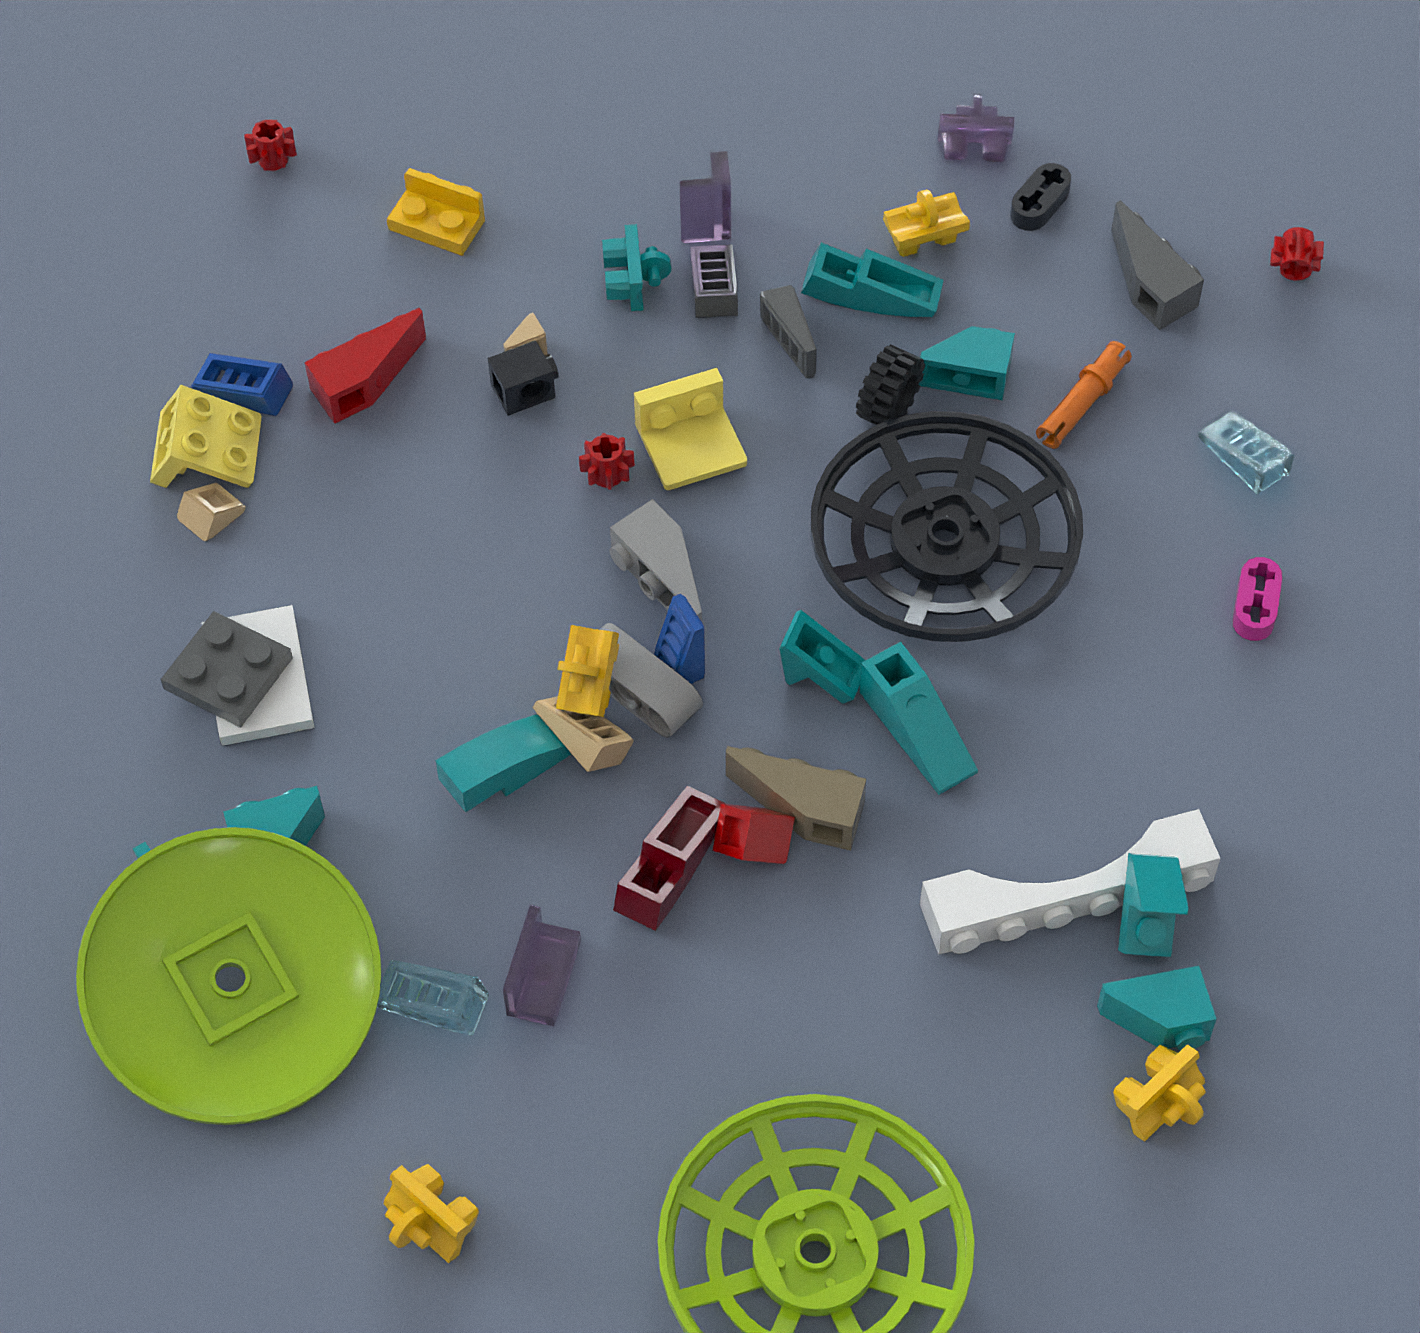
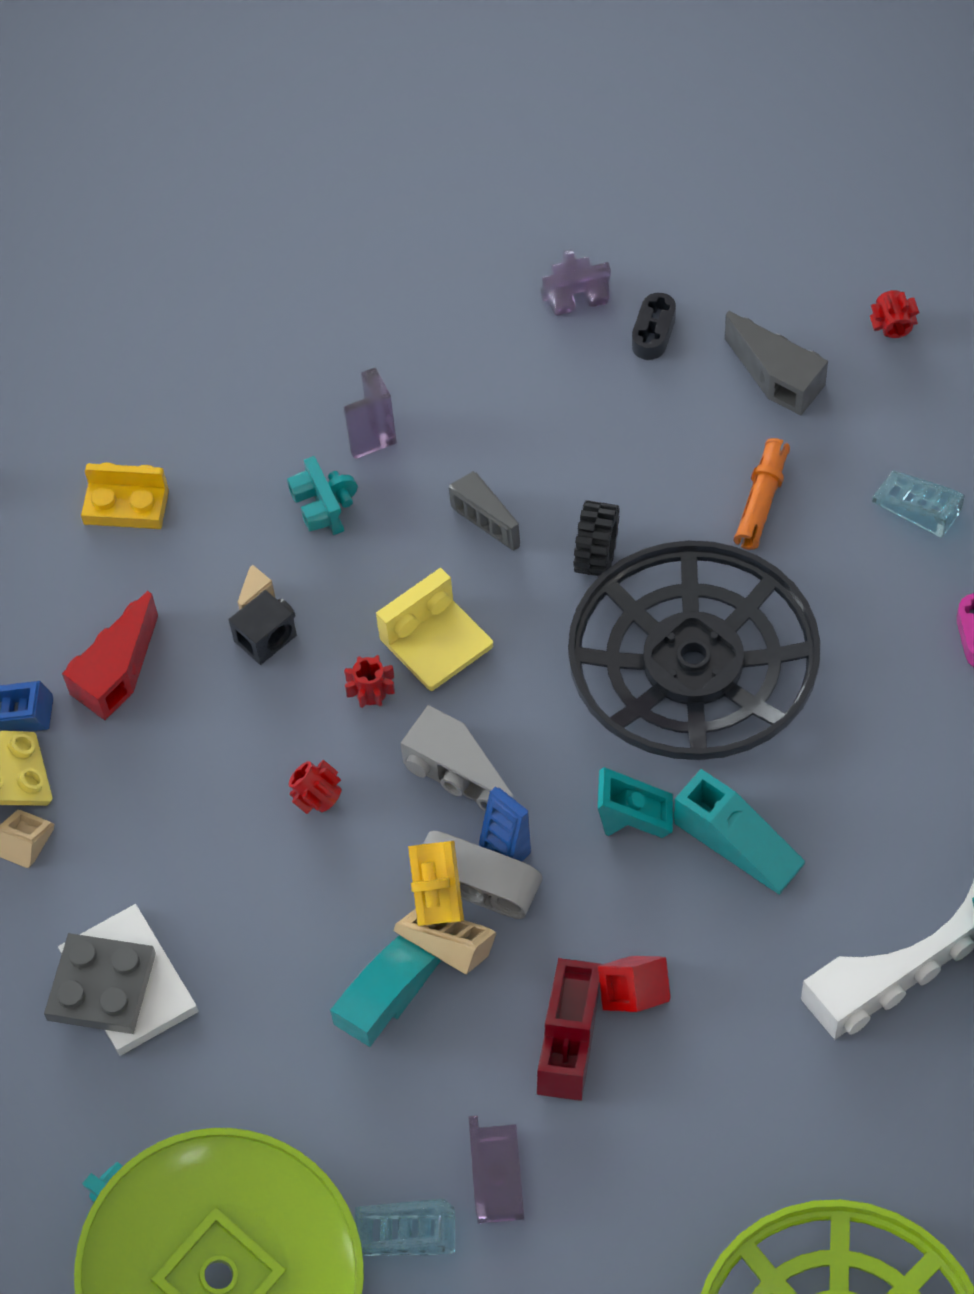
camera: 15 degrees left, 0 degrees up
(291, 815) = (210, 1106): teal slope -> none
(510, 546) = (315, 786): none -> red gear
(714, 302) = (405, 506): dark grey slope -> none
(821, 800) = (682, 933): dark tan slope -> none
(871, 283) = (538, 448): teal slope -> none
(926, 221) = (566, 377): yellow hips -> none
(970, 363) = (656, 494): teal slope -> none

